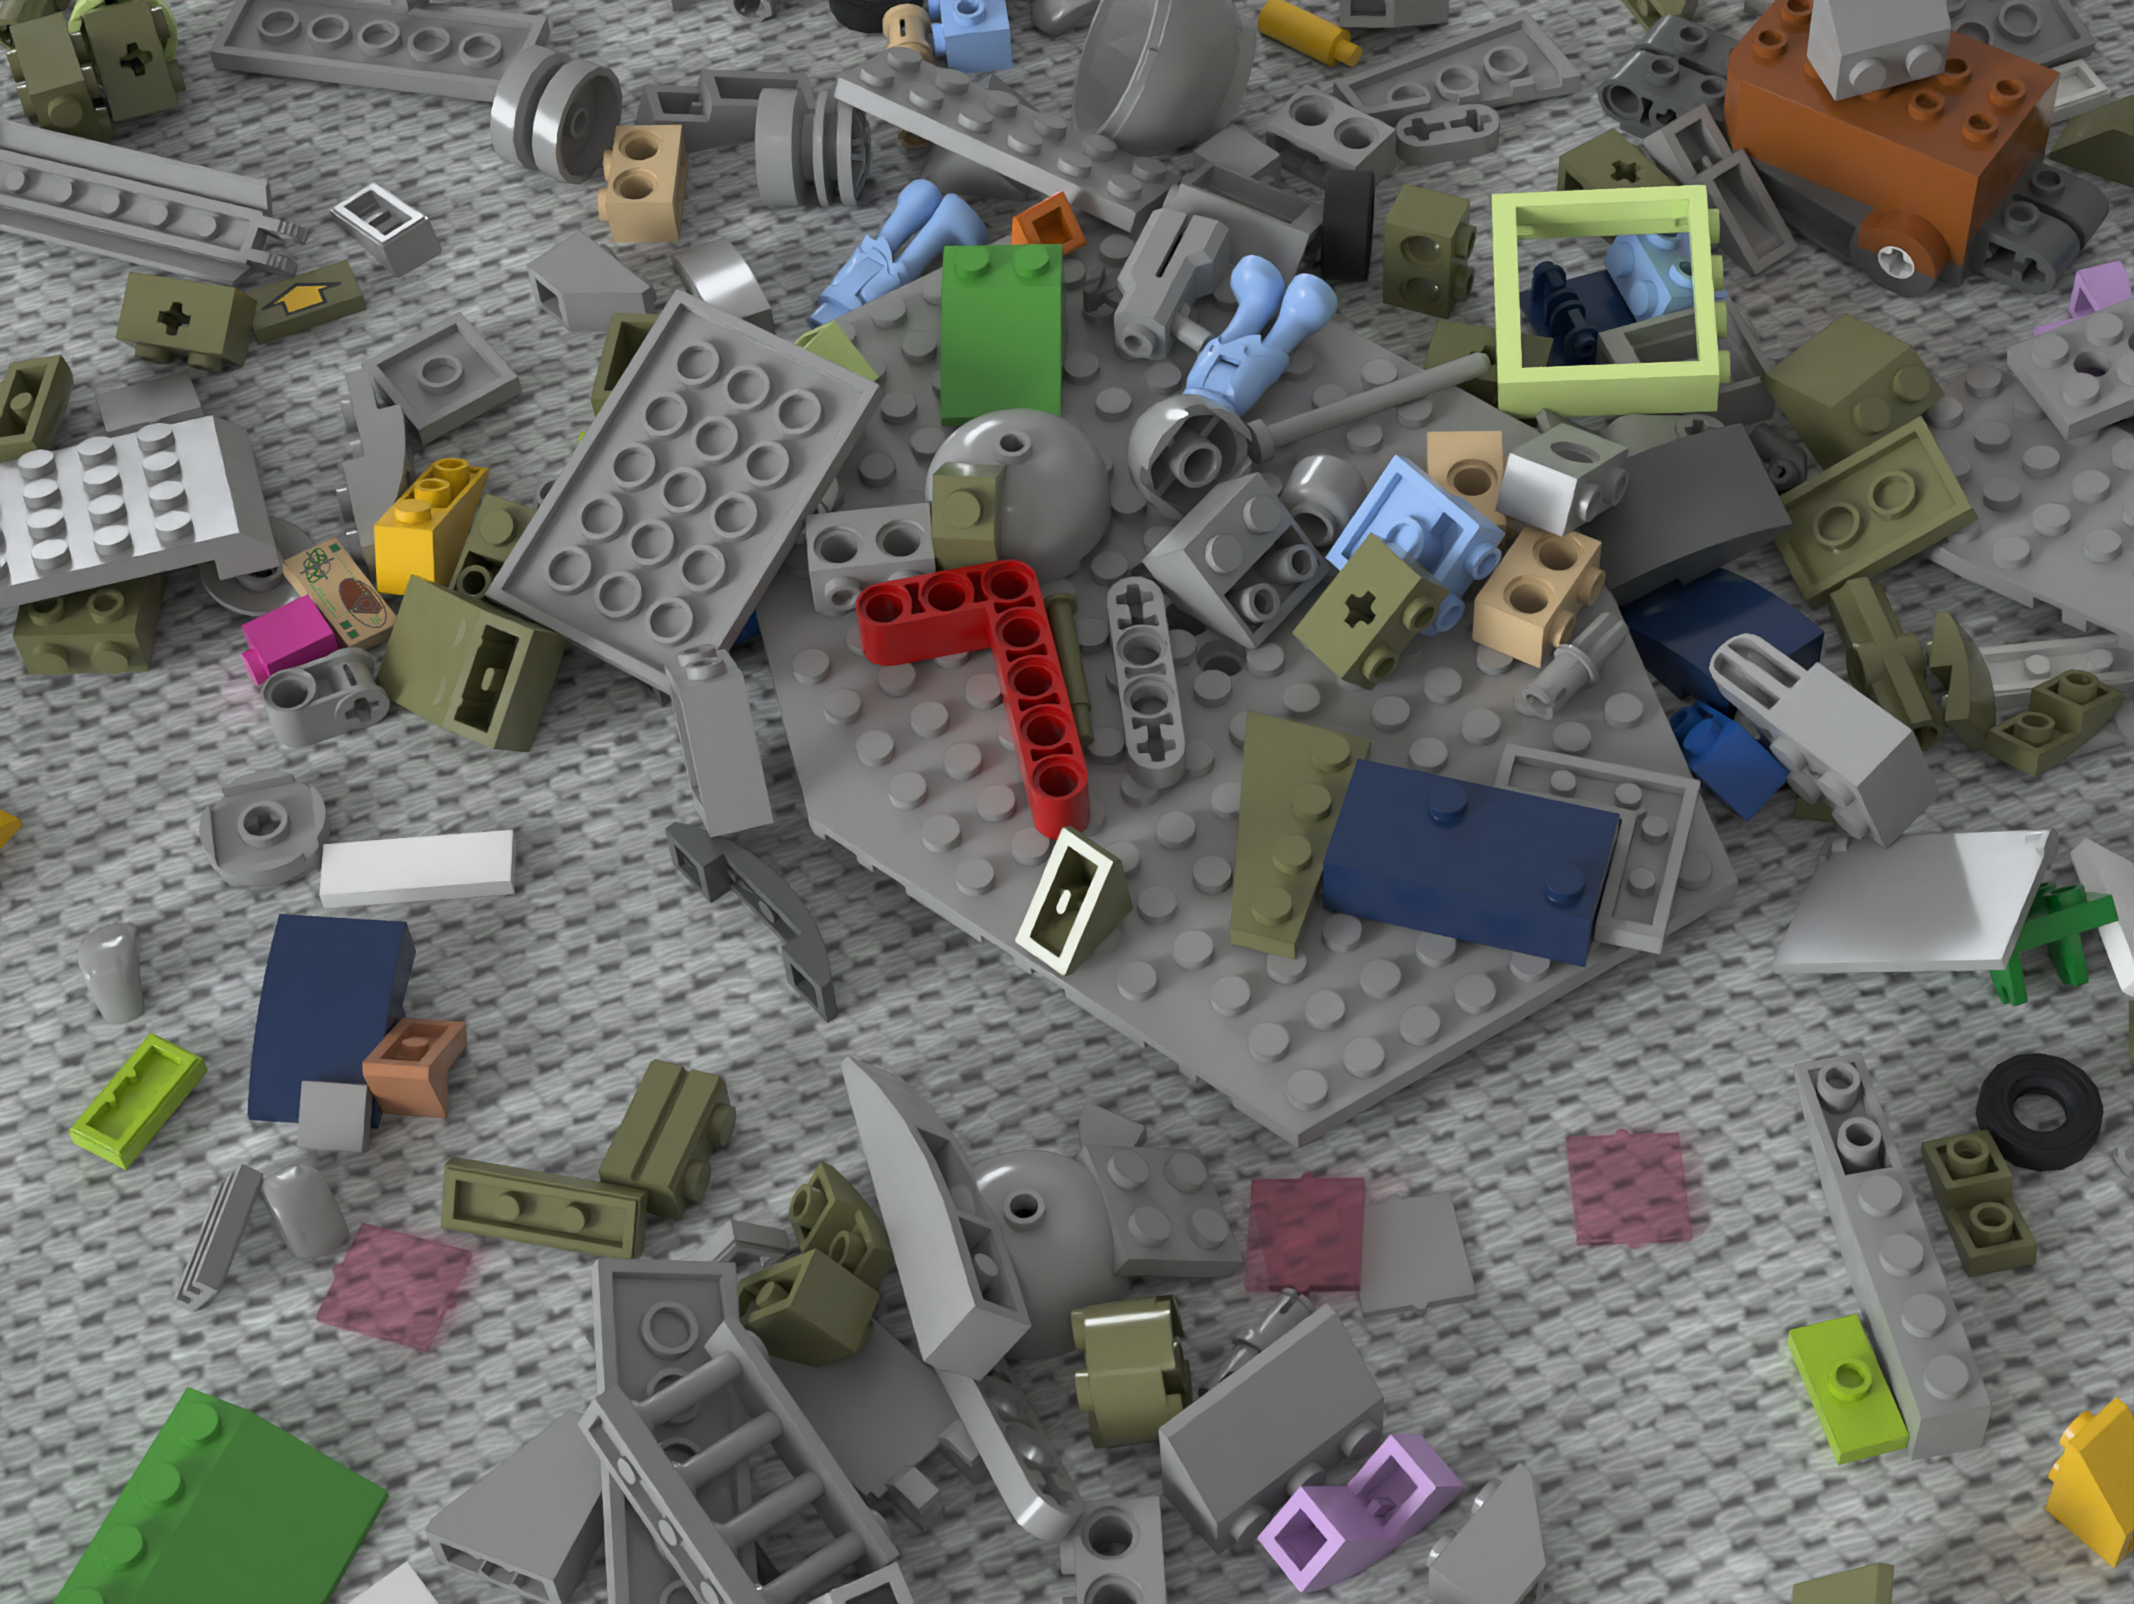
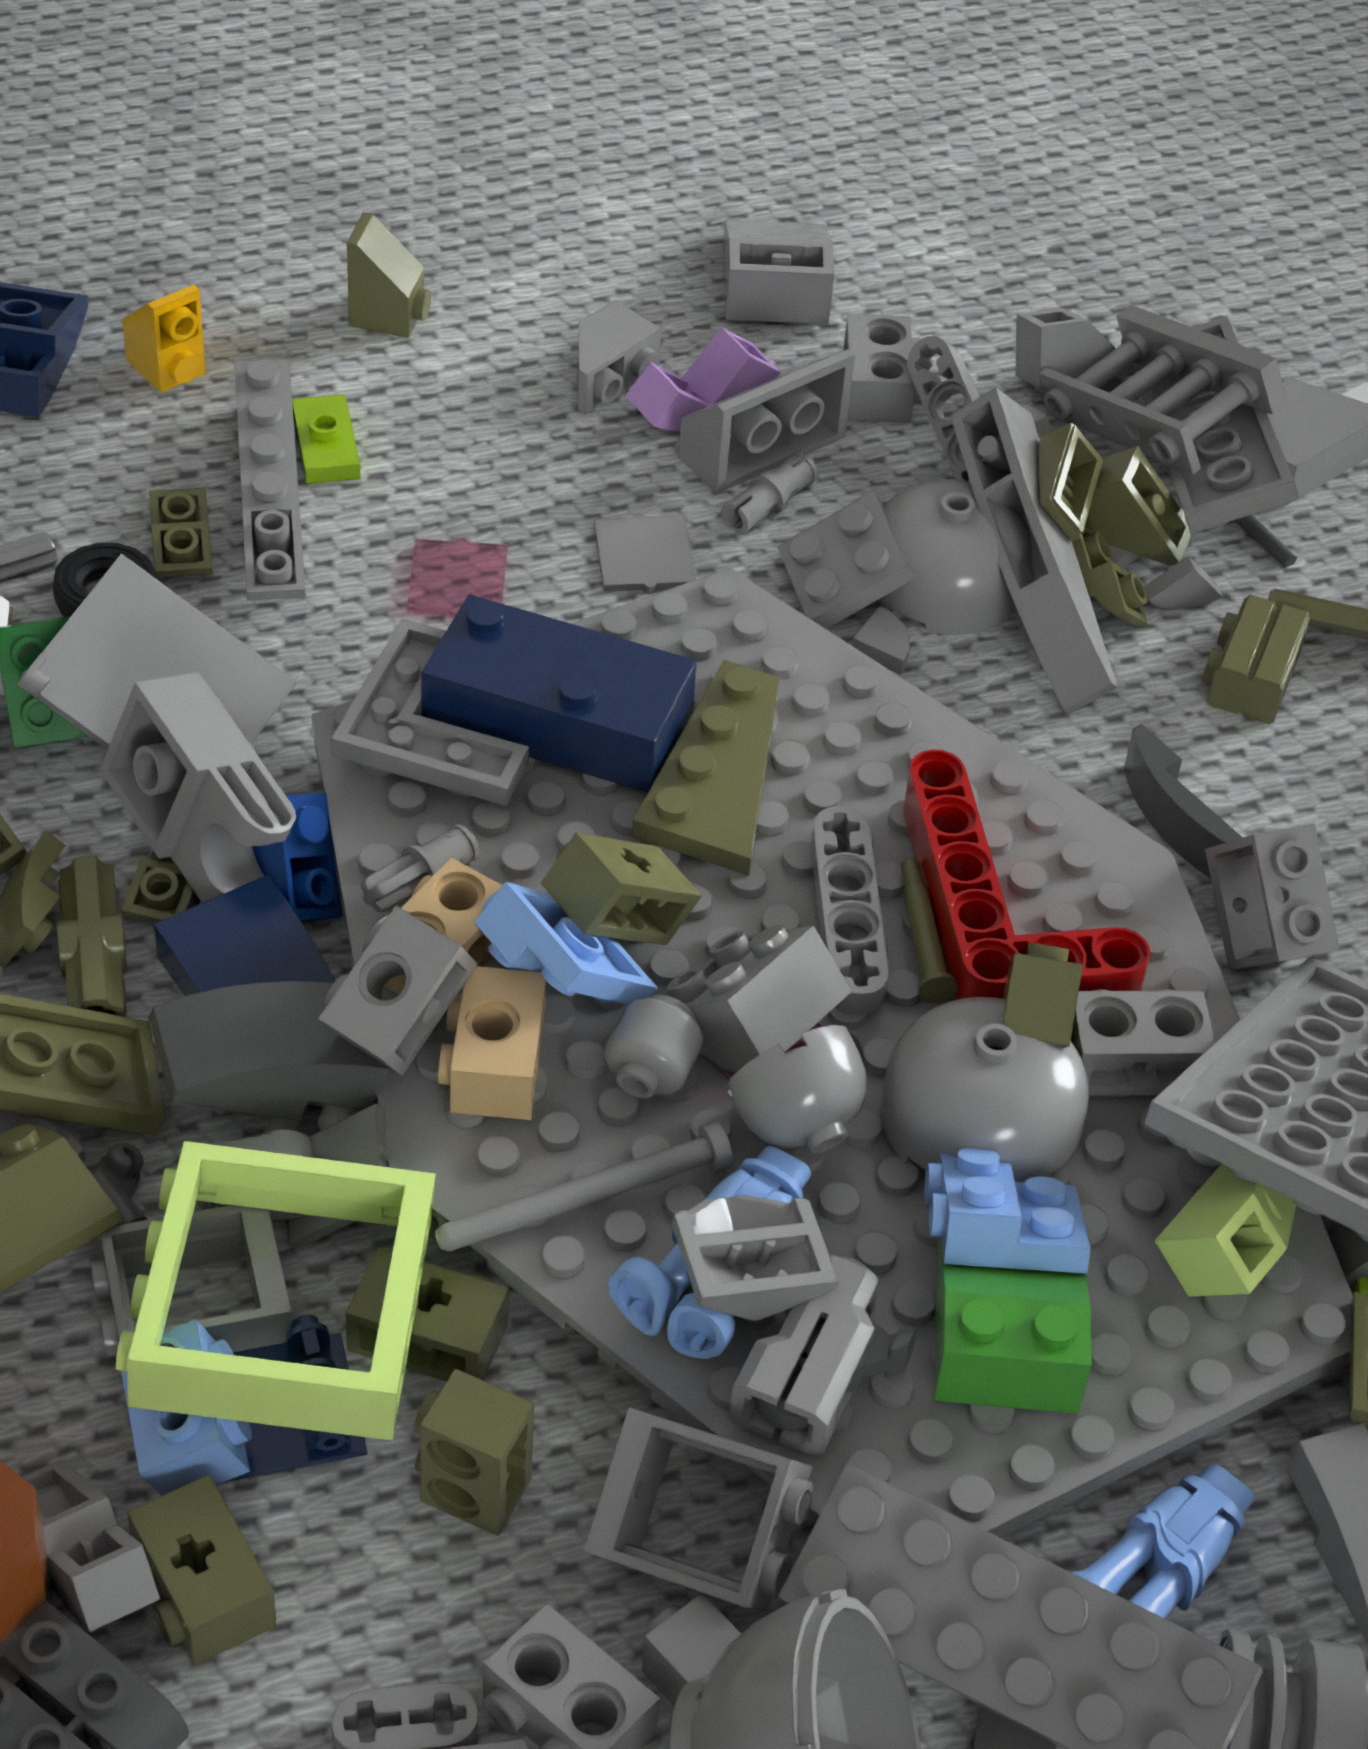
camera: 175 degrees right, 5 degrees down
(884, 1266) = (1068, 477): none -> olive slope
(1003, 367) = (1002, 1222): none -> light blue plate
(1048, 223) = (962, 1469): orange slope -> none
(1075, 903) = (911, 706): olive slope -> none
(1132, 1369) = (867, 450): olive brick -> none
(1224, 294) = (753, 1255): none -> light grey slope
(1305, 1234) = (714, 549): clear pink piece -> none
(1347, 225) = (565, 1518): black tyre -> none

